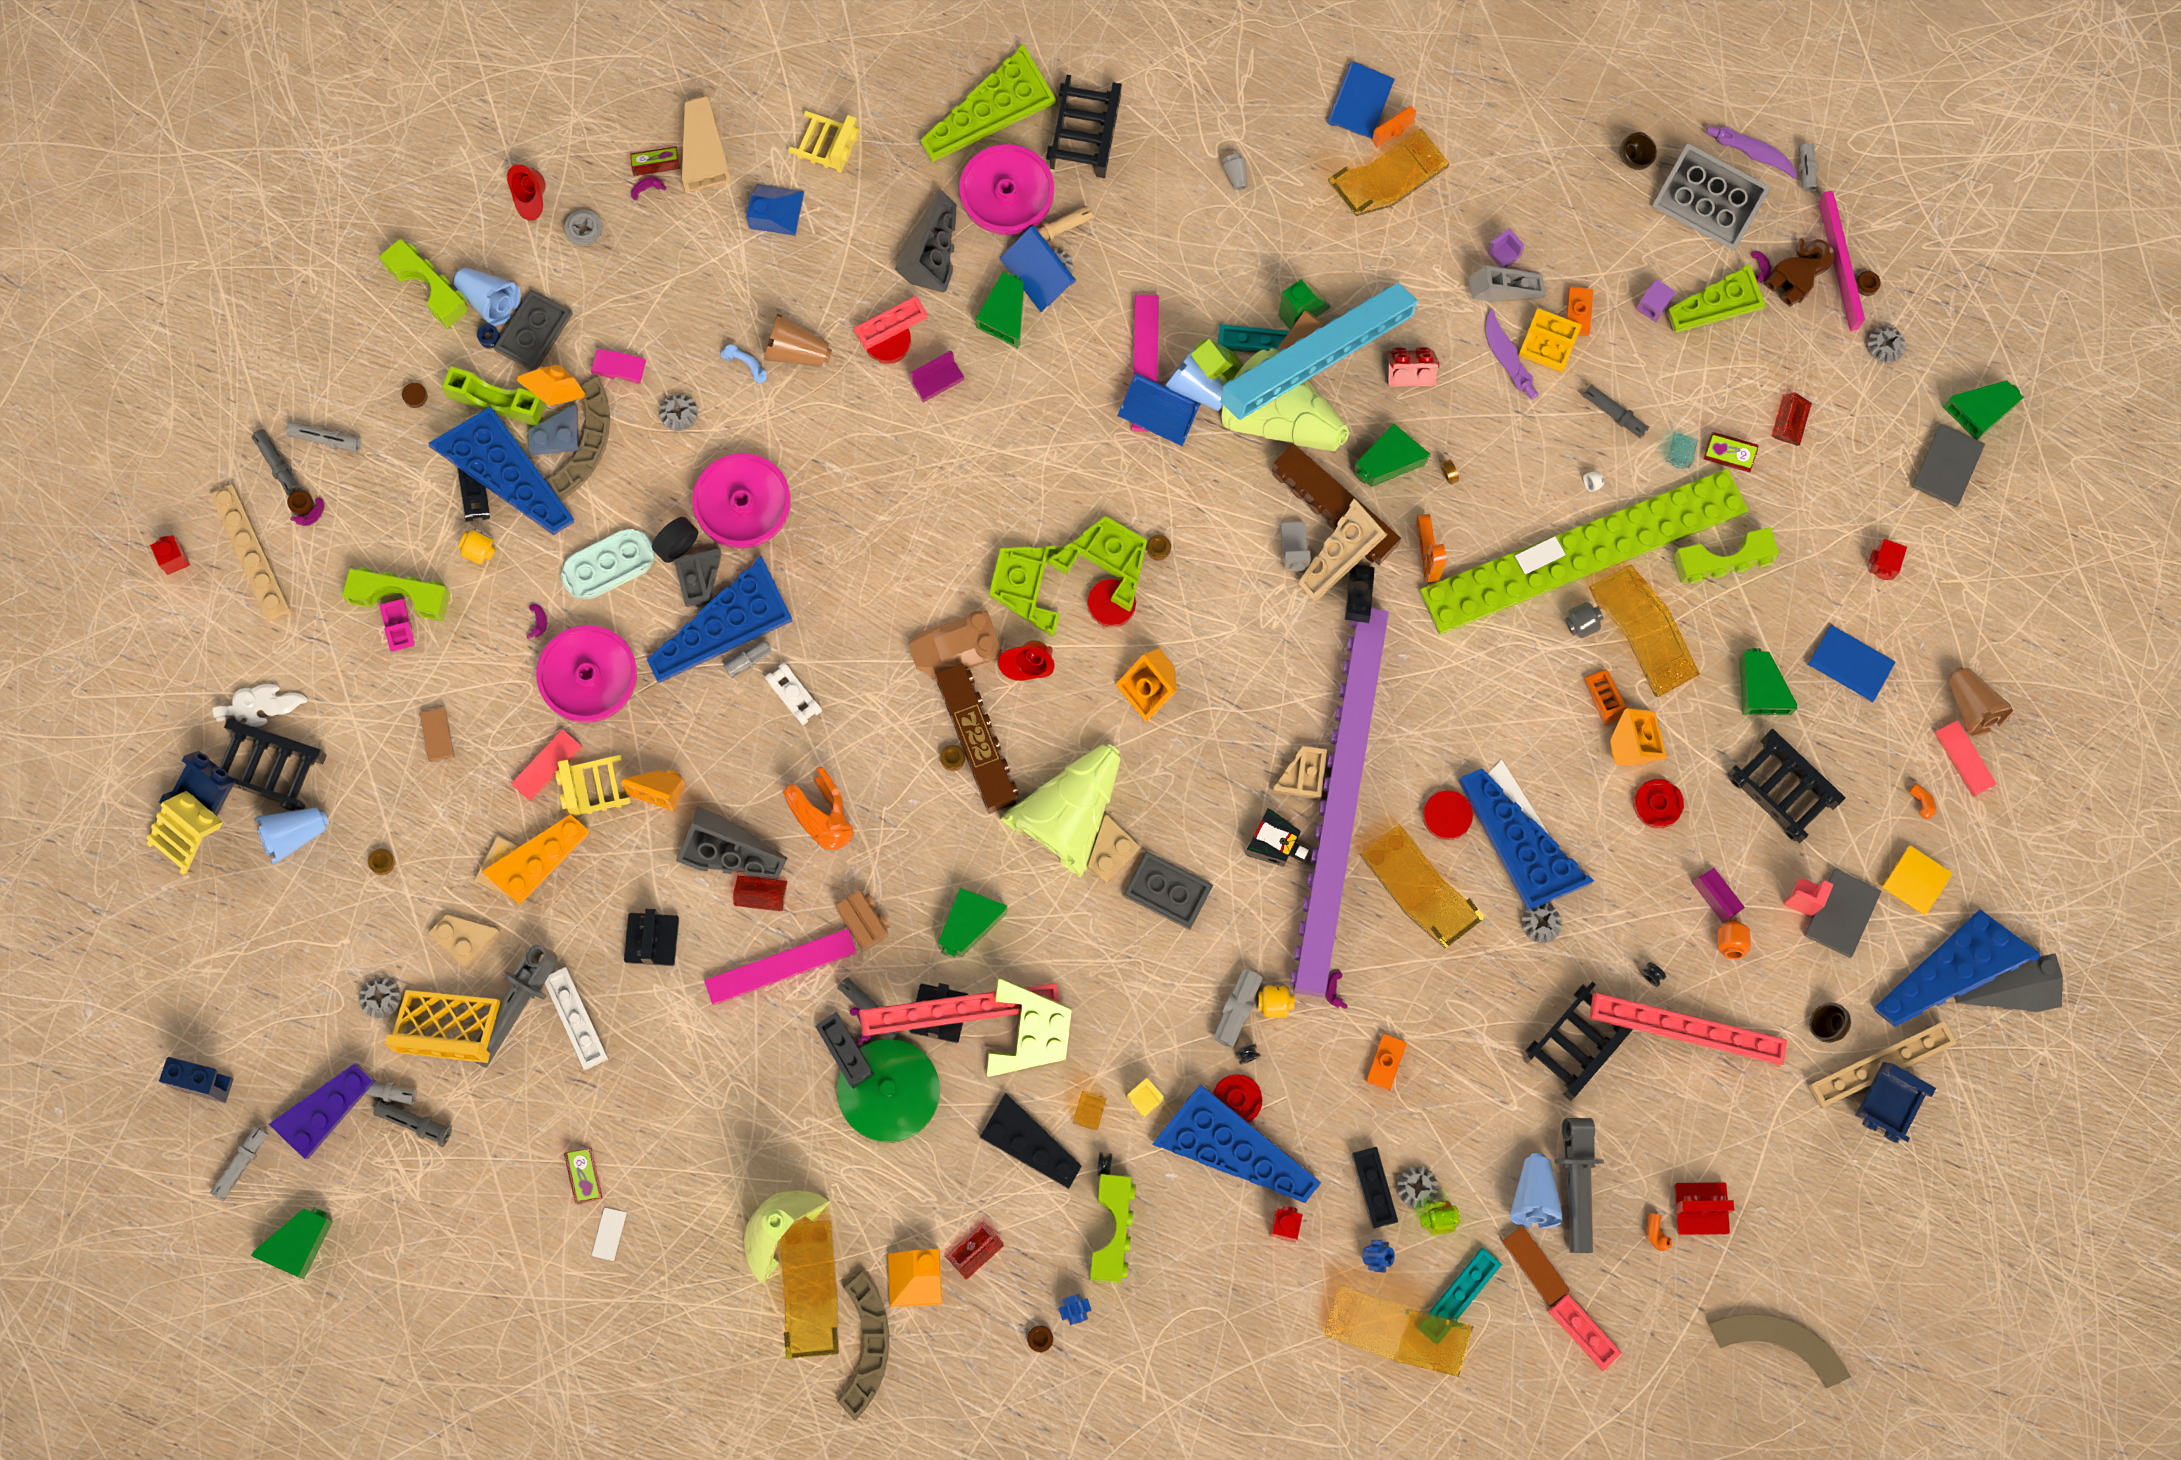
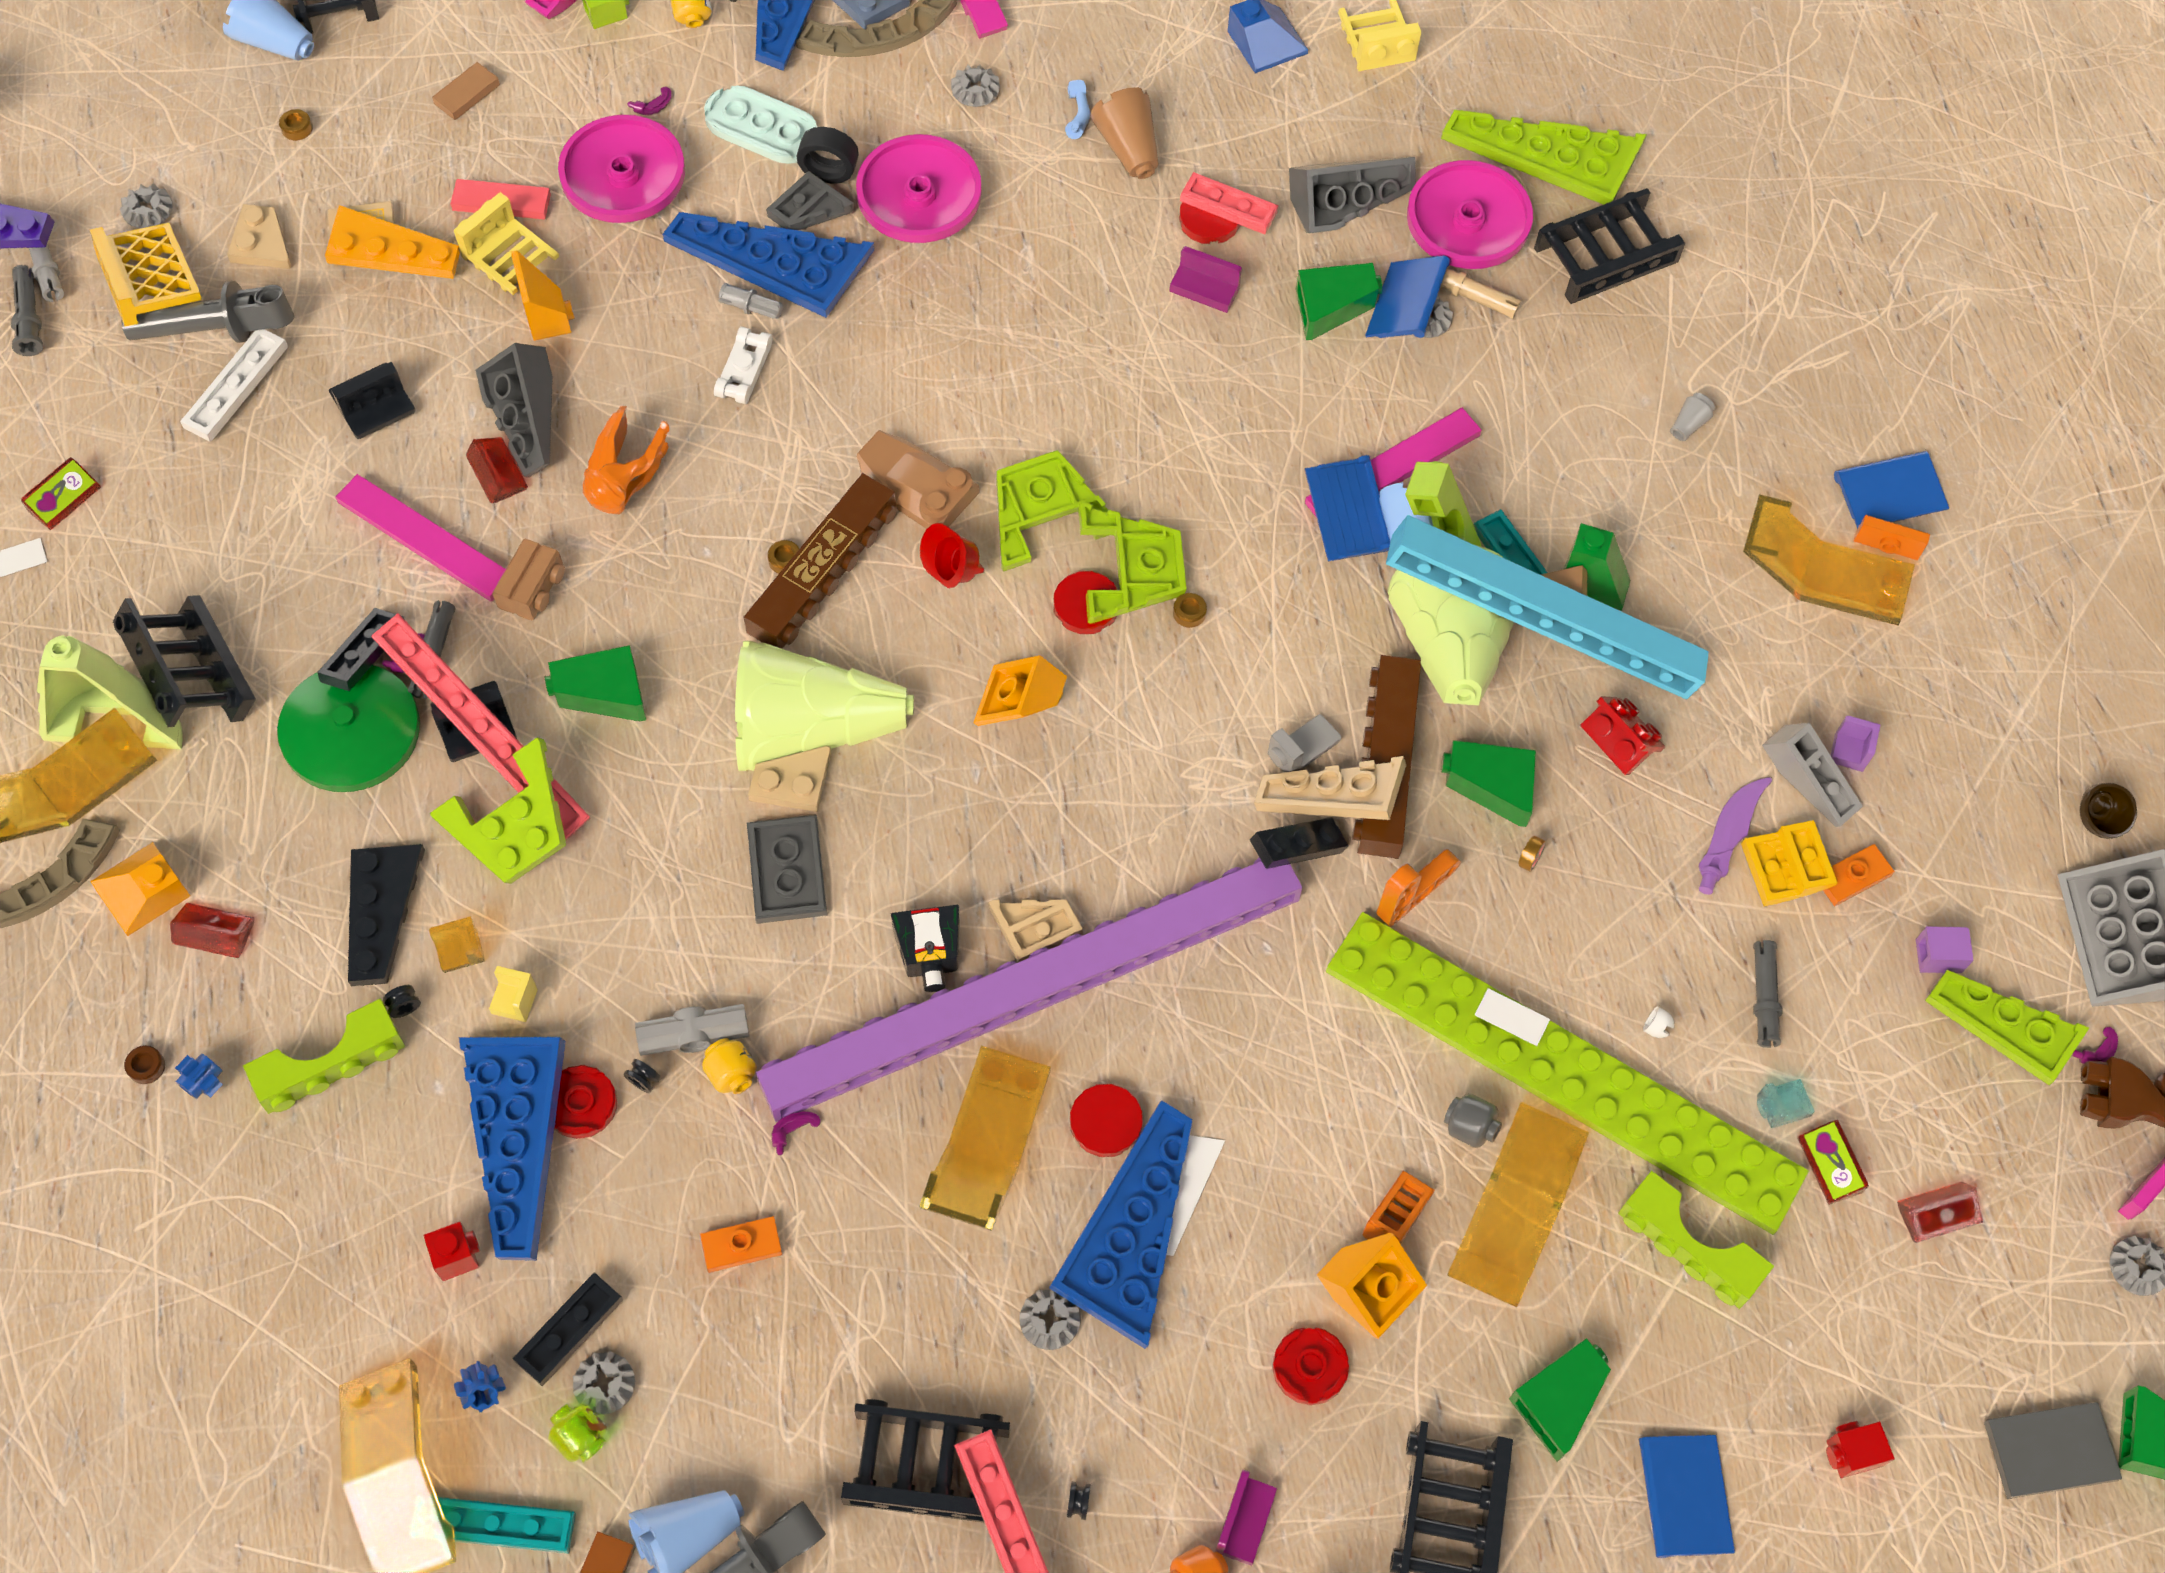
camera: 55 degrees right, 10 degrees down
(780, 1144) = (204, 641): none -> black fence

